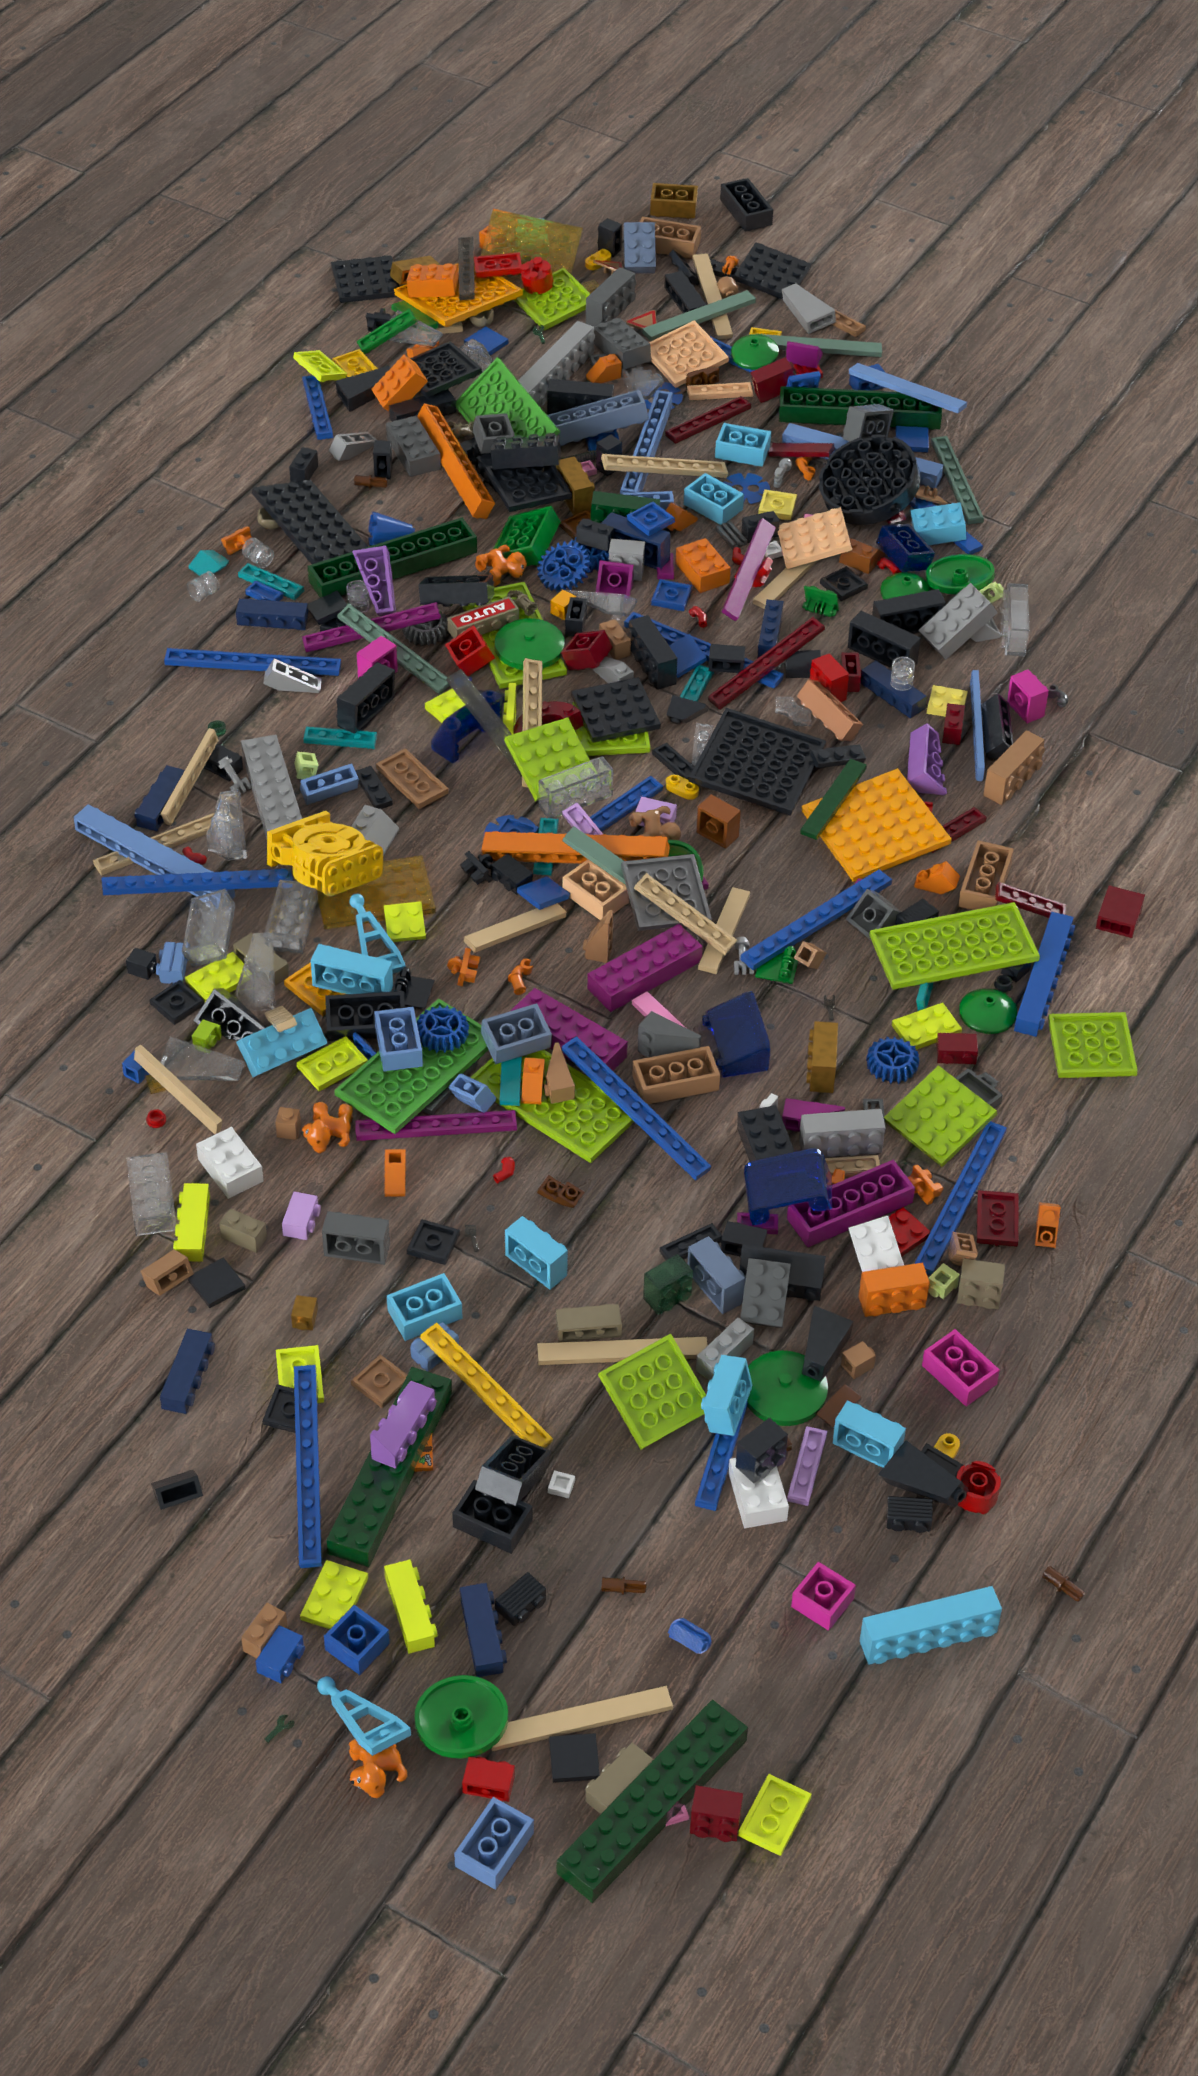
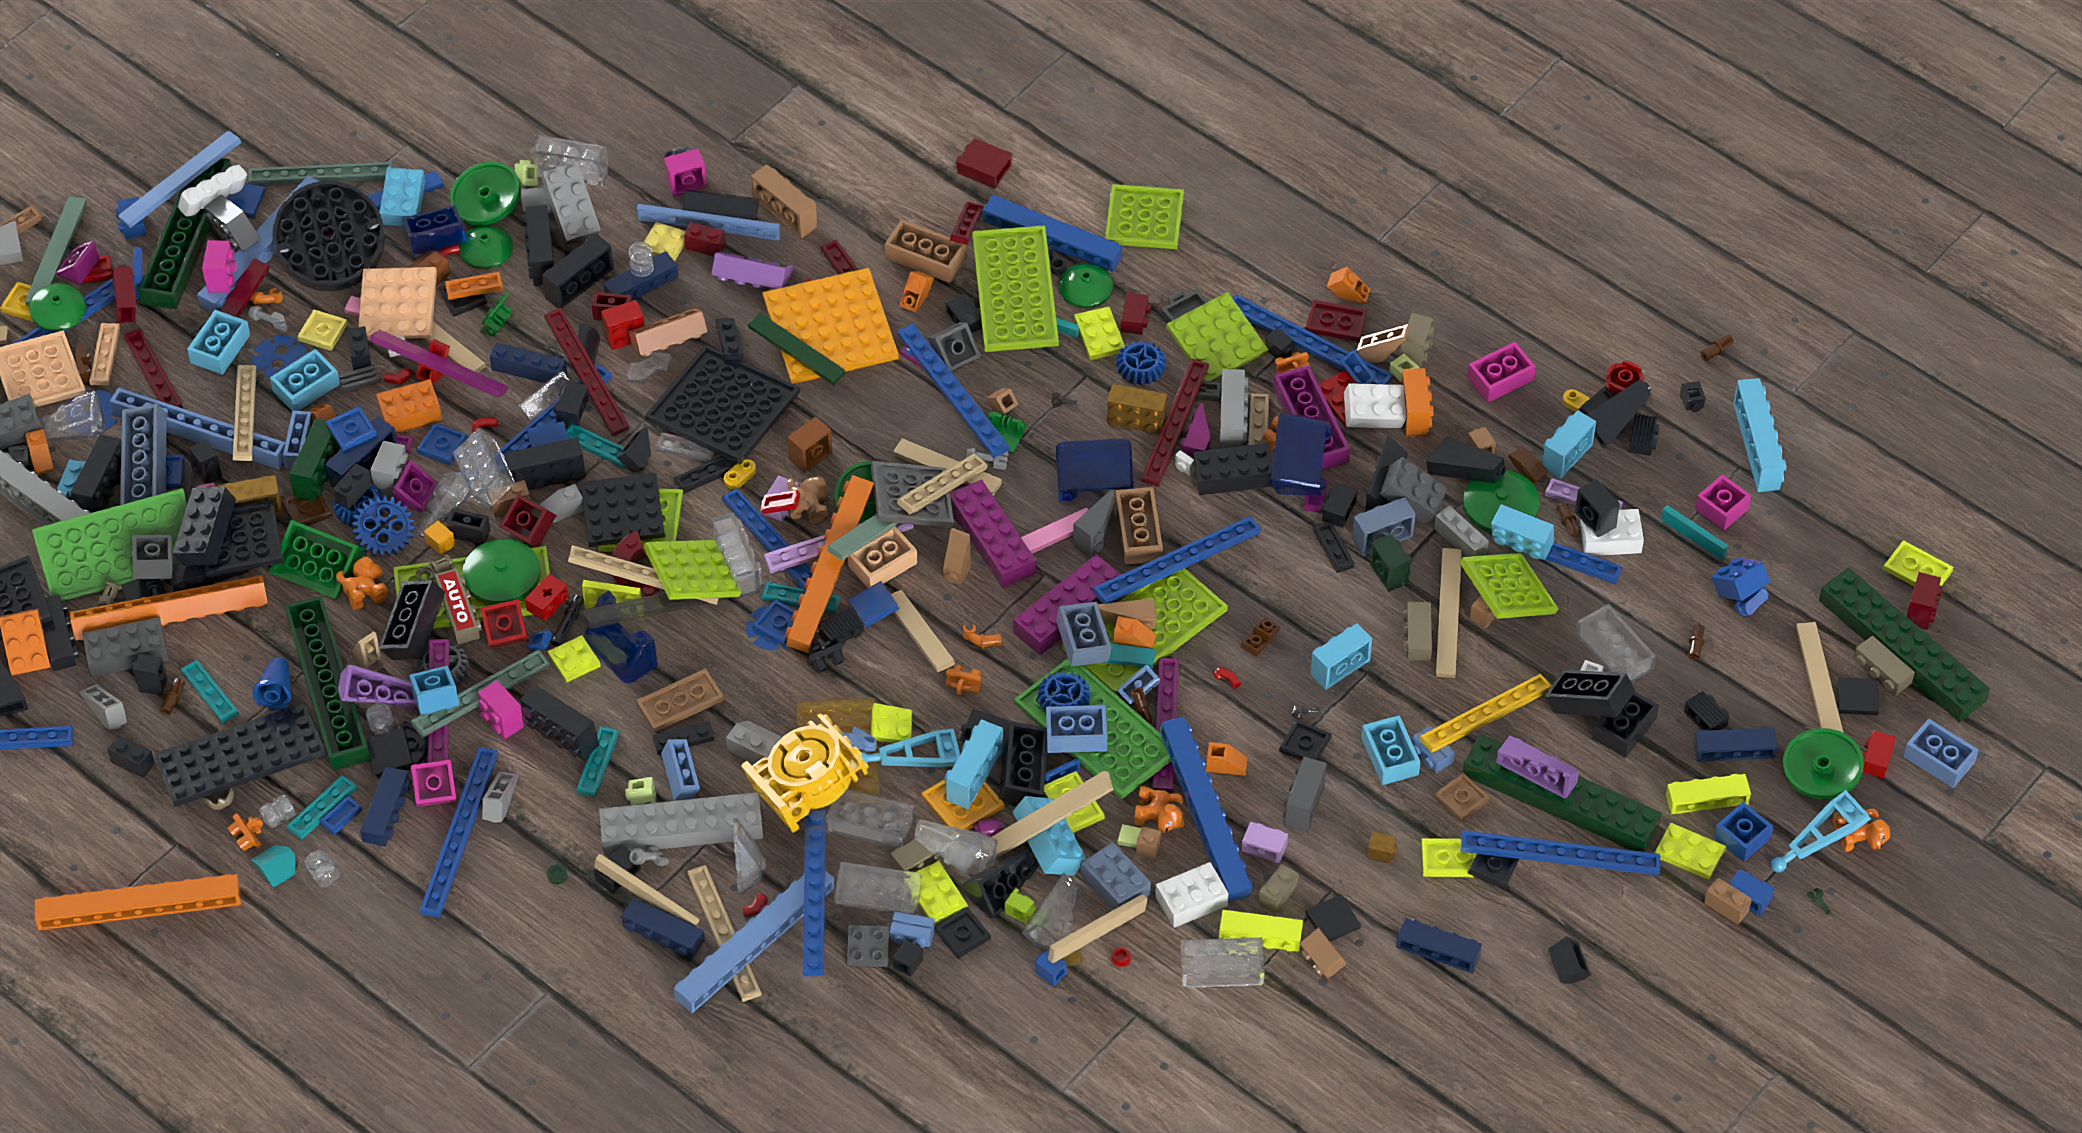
camera: 80 degrees left, 5 degrees up
(154, 934) = (868, 946): none -> dark grey hinge
(163, 494) = (137, 902): none -> orange brick
(244, 1101) = (1114, 876): none -> sand blue brick
(292, 632) = (433, 783): none -> dark pink brick
(293, 1002) = (989, 826): none -> magenta brick
(305, 1110) = (1128, 836): none -> yellowish green tile
(325, 1156) = (1205, 808): none -> blue brick
(375, 892) = (861, 740): none -> medium blue plate
(376, 607) = (434, 690): none -> dark azure brick
(380, 501) = (209, 691): none -> teal tile
(419, 569) = (367, 653): none -> tan slope
(447, 1097) = (1141, 704): none -> reddish brown axle
(502, 671) = (547, 597): none -> red brick
(596, 1501) = (1615, 643): none -> clear brick
(629, 605) = (483, 468): none -> clear brick
(637, 803) = (780, 502): none -> red tile
(709, 1615) = (1740, 578): none -> blue brick
(726, 638) = (543, 396): none -> clear plate
(777, 1573) = (1694, 532): none -> teal tile
(812, 420) = (219, 266): none -> dark pink brick
(821, 1093) = (1175, 422): none -> dark red tile
(850, 582) = (474, 285): none -> orange plate
(903, 406) = (206, 191): none -> white brick
(924, 1234) = (1357, 368): none -> blue slope
(948, 1170) = (1279, 344): none -> black brick
(978, 1559) = (1694, 399): none -> black brick

